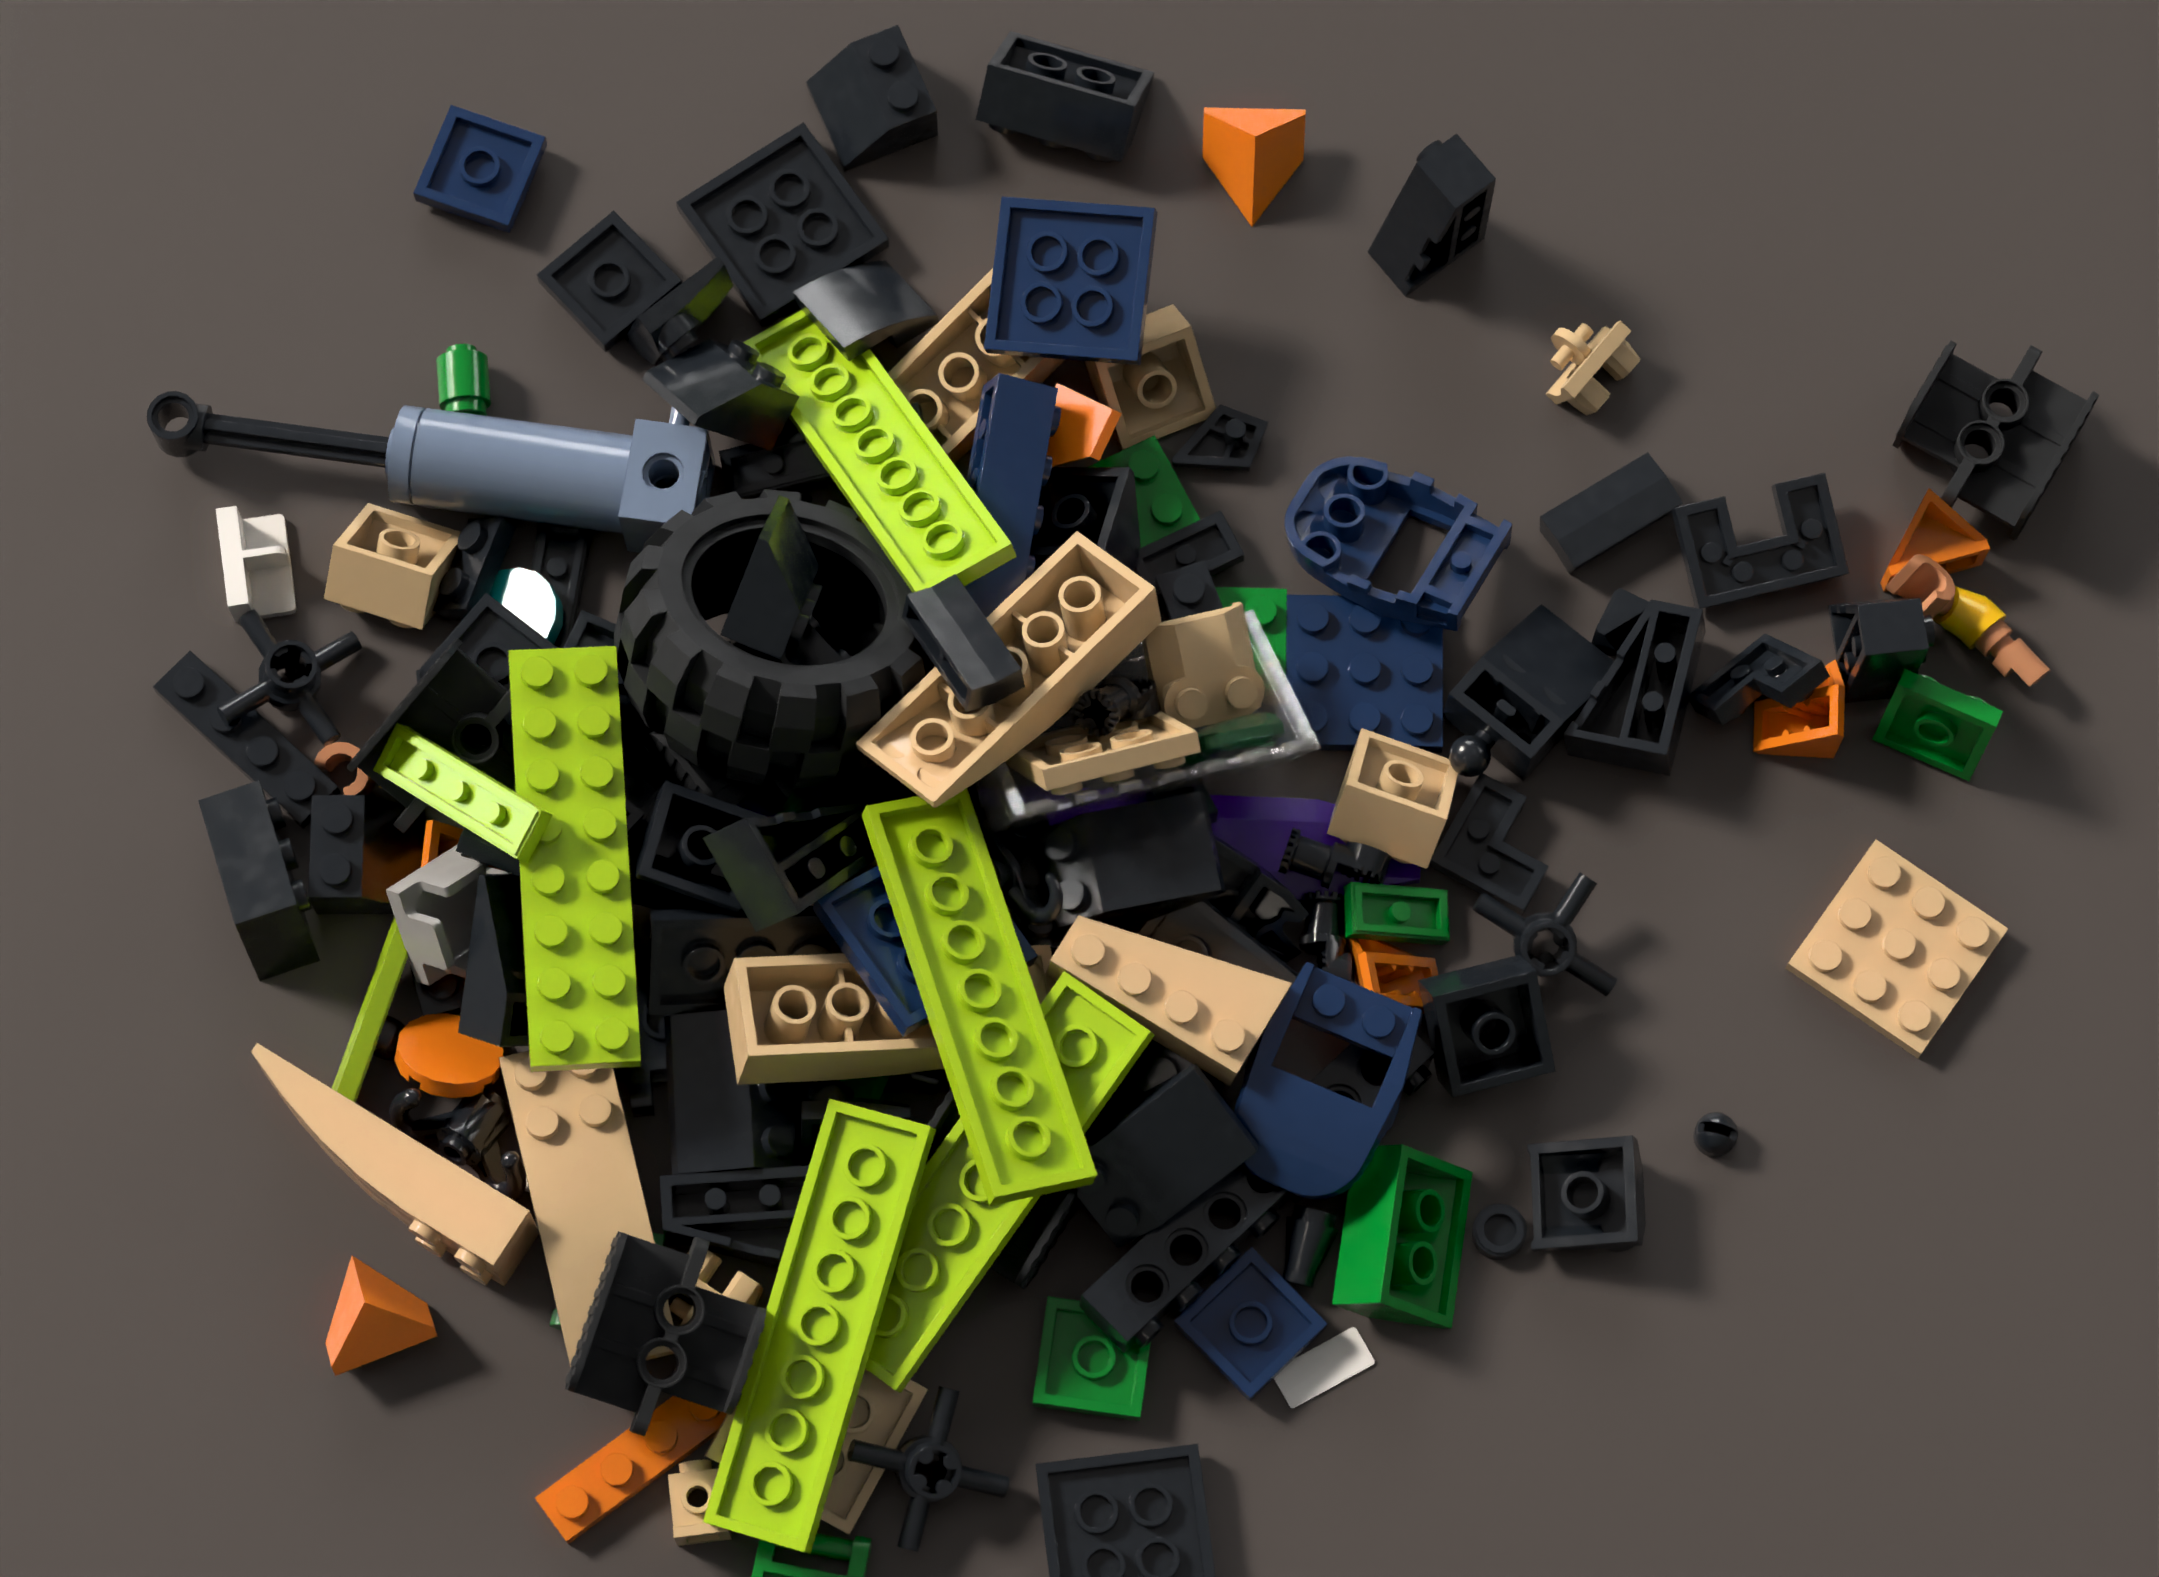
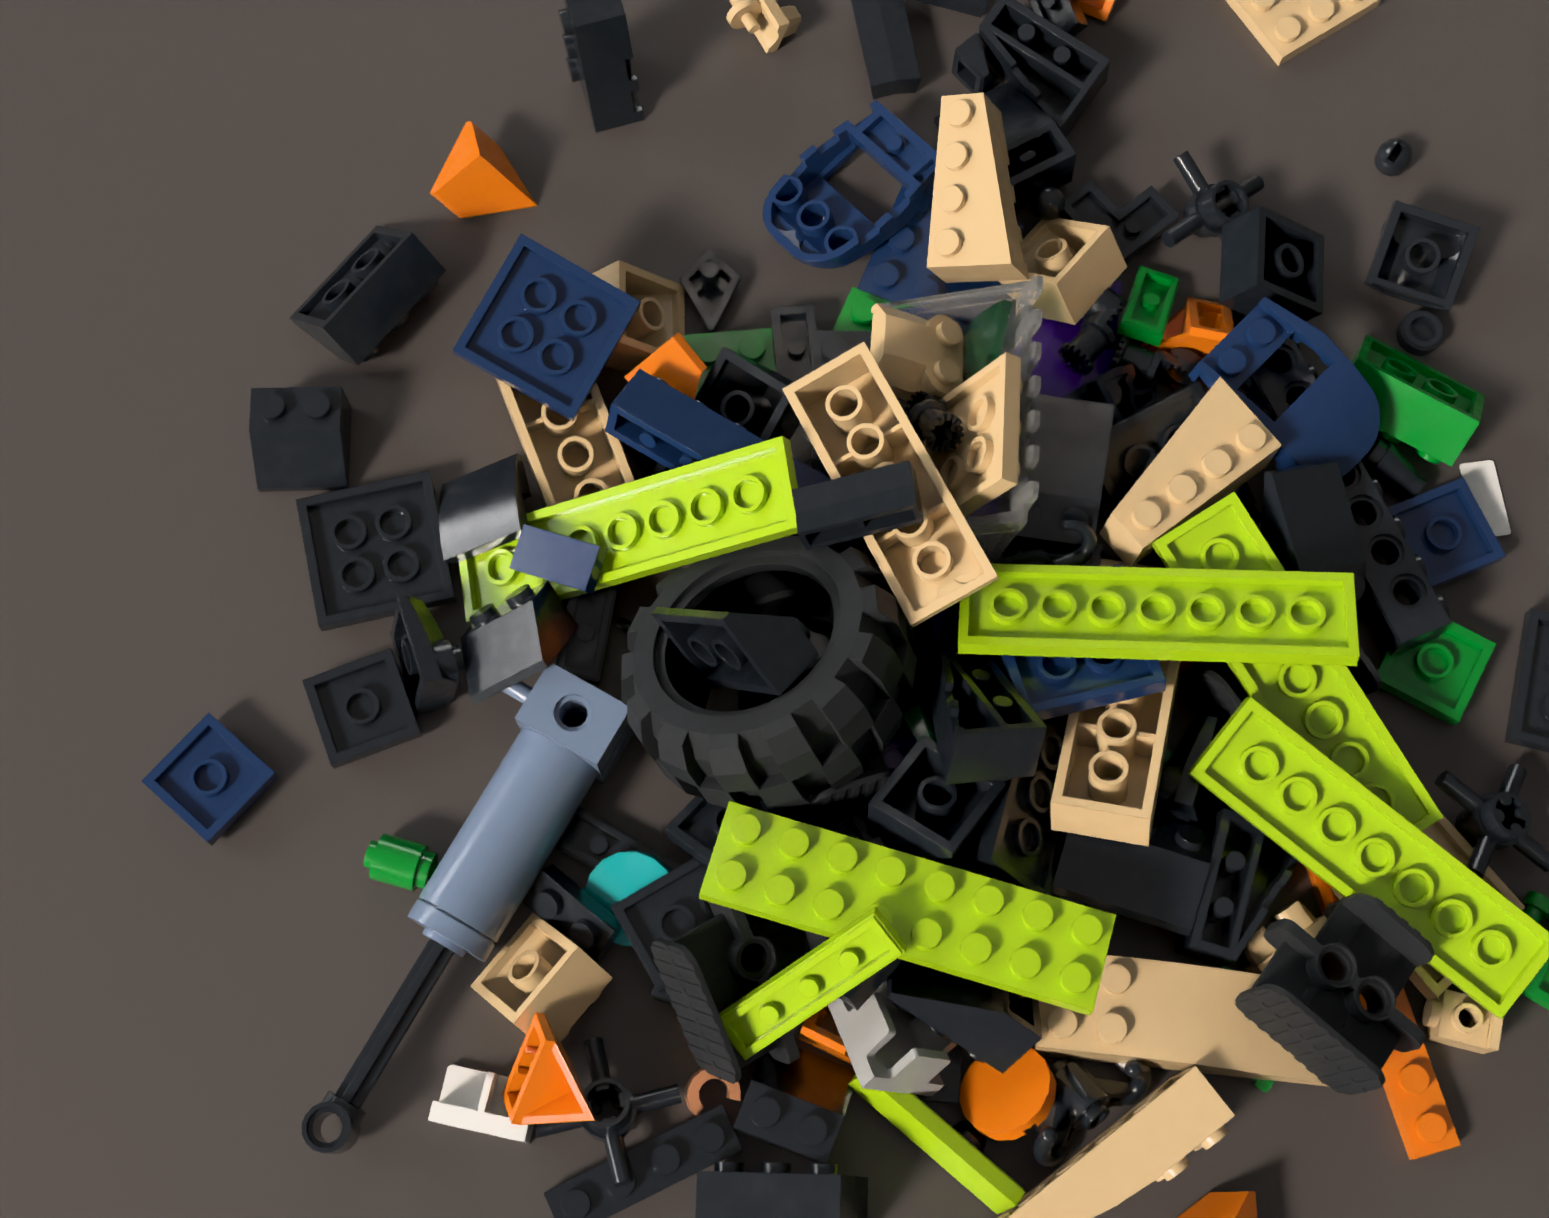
camera: 70 degrees left, 0 degrees up
(294, 601) = (544, 1081): none -> orange slope
(825, 396) = (558, 558): none -> dark blue tile
(1424, 661) = (973, 201): none -> tan wedge

